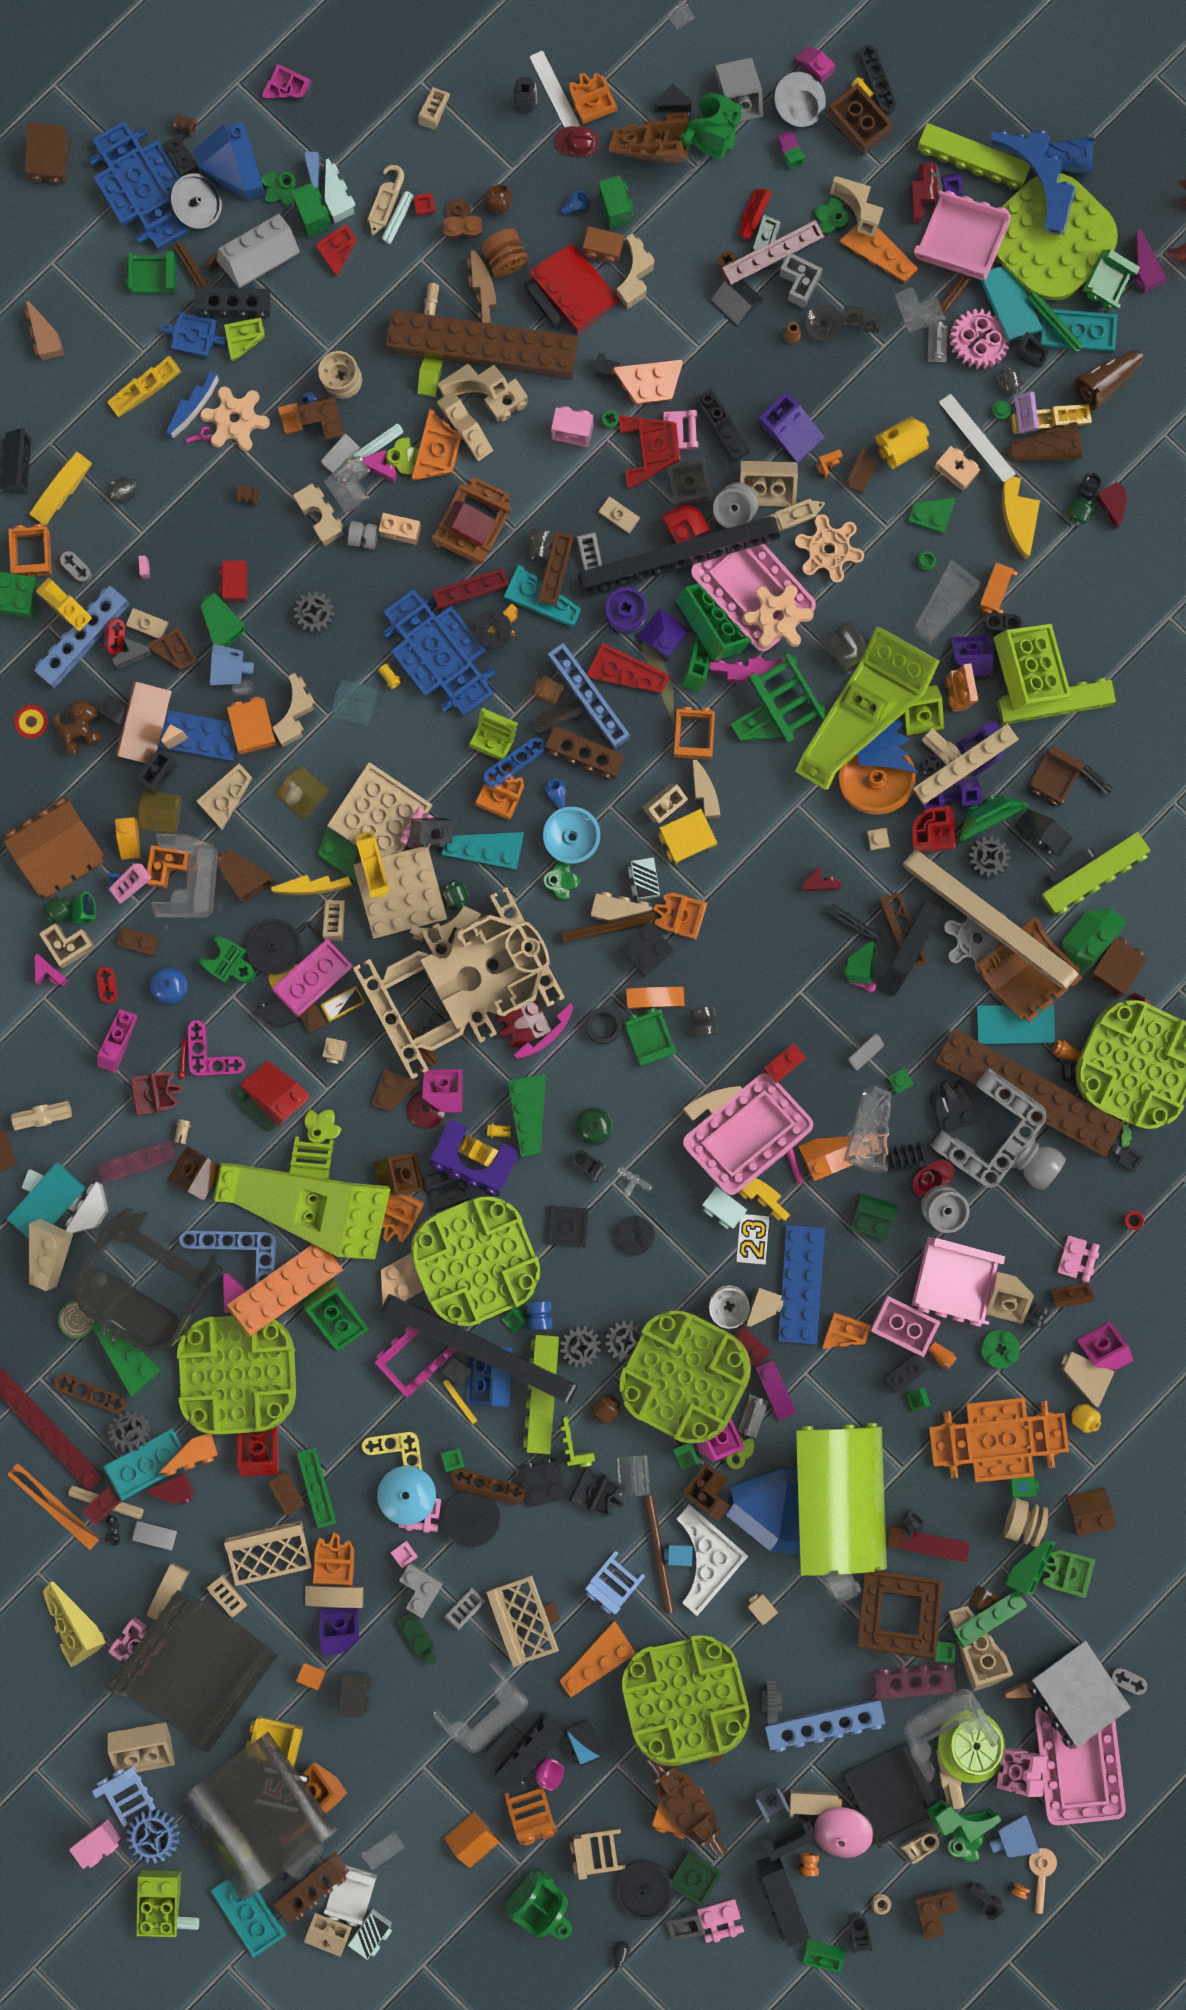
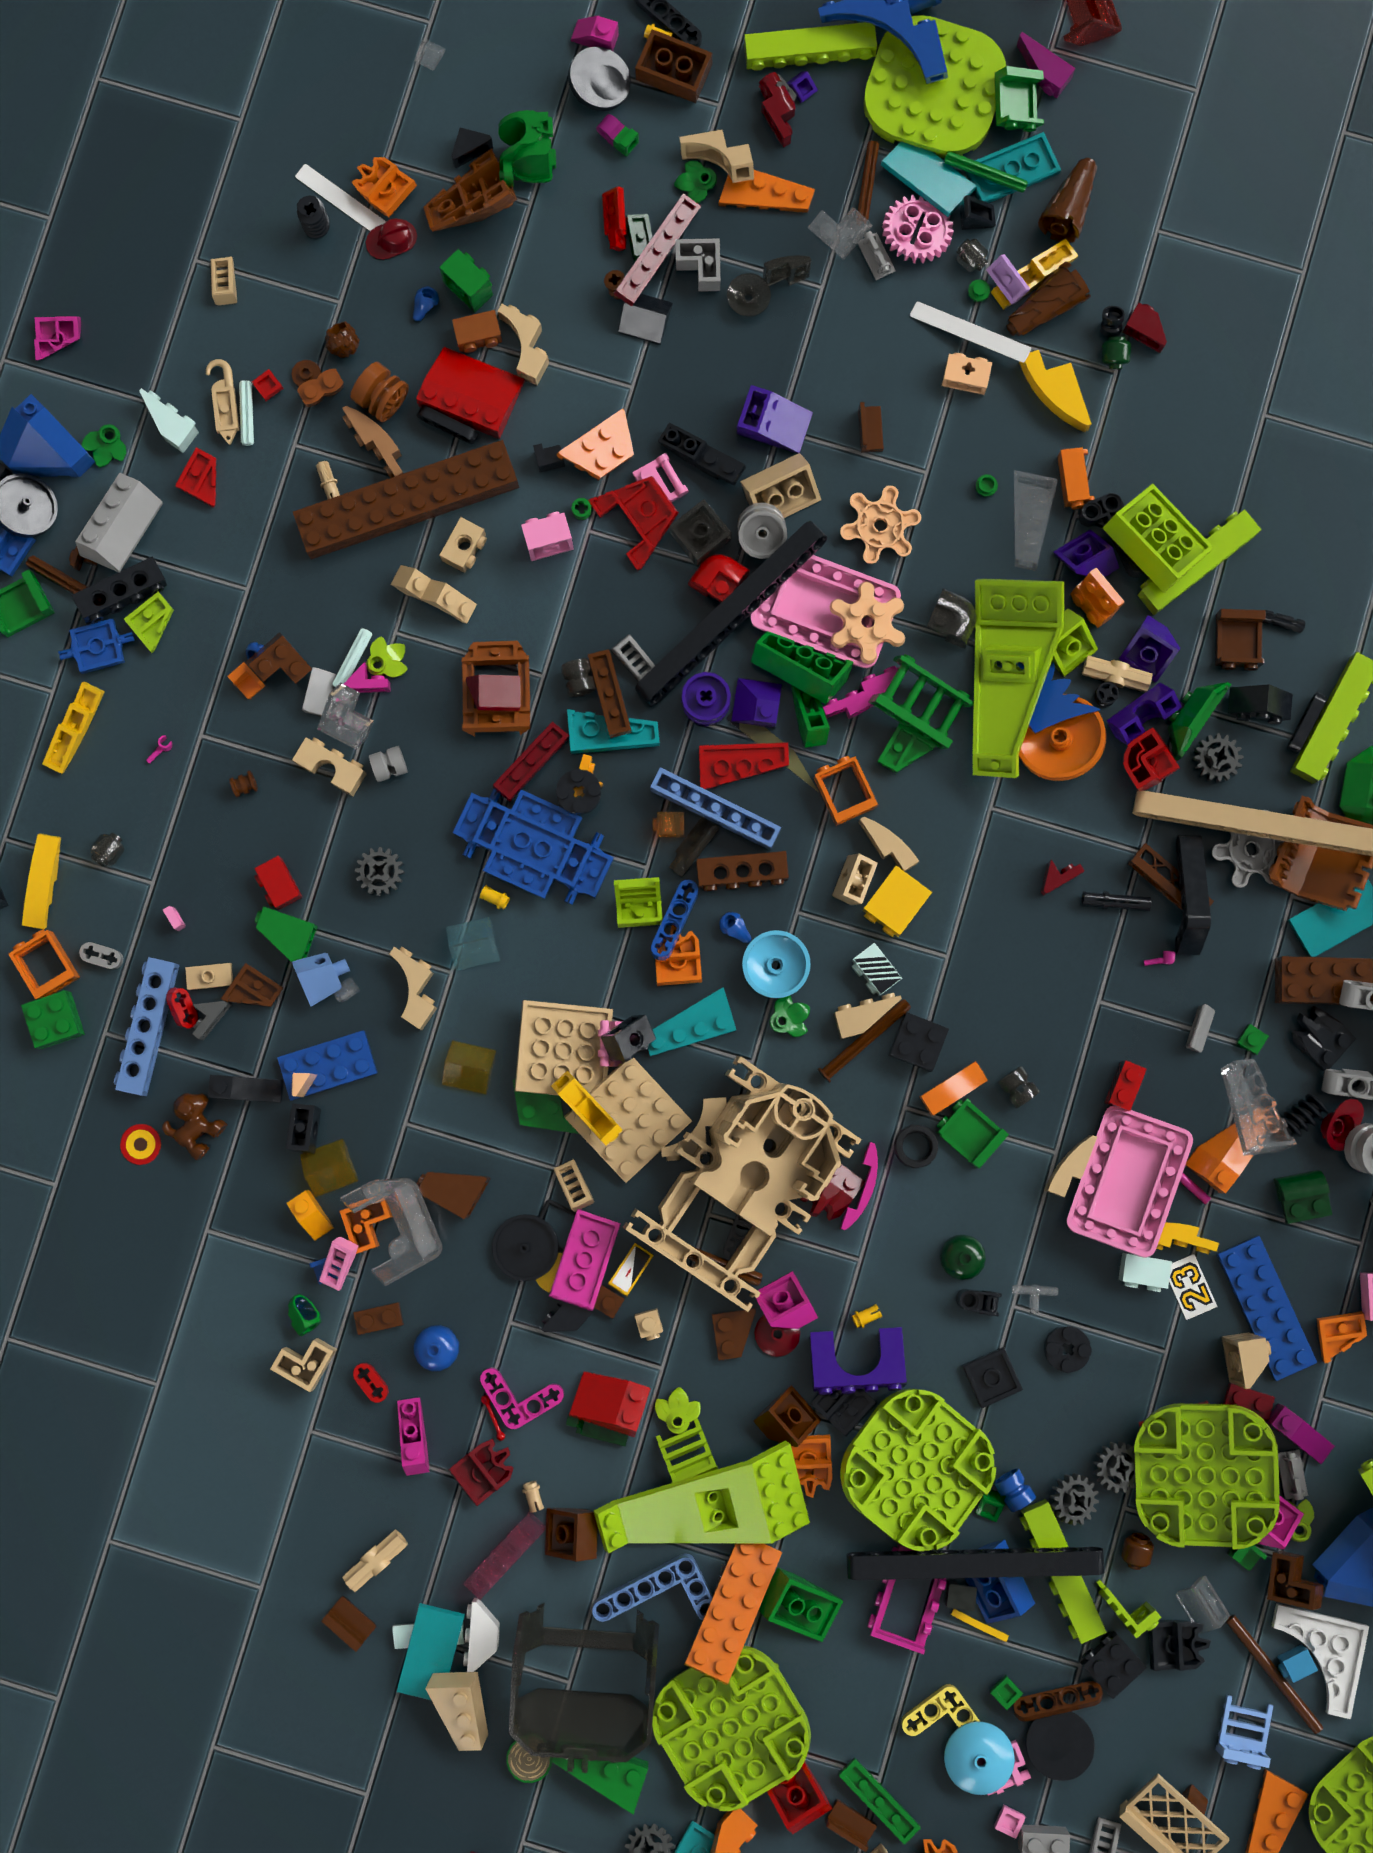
camera: 30 degrees left, 0 degrees up
(44, 968) = (295, 1400): dark pink slope -> none
(53, 847) = (235, 1267): dark orange hinge -> none
(57, 910) = (274, 1331): dark green head -> none
(64, 604) = (110, 1003): yellow panel -> none
(91, 1390) = (584, 1825): reddish brown beam -> none
(143, 722) = (261, 1084): tile -> none
(190, 409) = (133, 728): blue slope -> none
(225, 795) = (389, 1114): tan wing -> none
(229, 962) = (484, 1289): green piece -> none
(232, 1290) = (679, 1638): dark pink slope -> none
(235, 430) = (197, 722): light nougat plate -> none
(251, 725) = (377, 1025): orange panel -> none
(304, 886) = (523, 1166): yellow slope -> none
(311, 209) = (151, 451): green brick -> none
(313, 165) = (129, 404): medium blue slope -> none
(337, 365) = (264, 601): tan wheel -> none
(399, 528) = (423, 737): light nougat brick -> none
(400, 1279) = (848, 1530): light nougat wing -> none
(429, 377) = (369, 562): lime slope -> none
(437, 449) = (417, 633): orange wing -> none
(455, 894) = (687, 1090): dark green head -> none
(467, 380) = (410, 544): tan arch -> none
(477, 1151) = (857, 1349): yellow slope -> none
(528, 1108) = (885, 1276): green wedge -> none
(619, 515) = (644, 603): tan plate -> none
(681, 915) = (933, 987): orange plate -> none
(739, 1311) = (1221, 1376): white wheel -> none
(741, 84) = (532, 90): light grey slope -> none
(794, 335) = (721, 322): dark orange cone -> none
(797, 514) = (827, 506): tan plate -> none
(831, 460) = (832, 433): orange bracket -> none
(861, 965) = (1149, 941): green slope -> none
(878, 839) = (1093, 799): tan plate -> none
(902, 441) = (897, 375): yellow cylinder -> none
(932, 514) = (966, 435): green wing -> none
(963, 235) = (844, 130): bright pink panel -> none
(965, 764) = (1146, 675): tan plate -> none

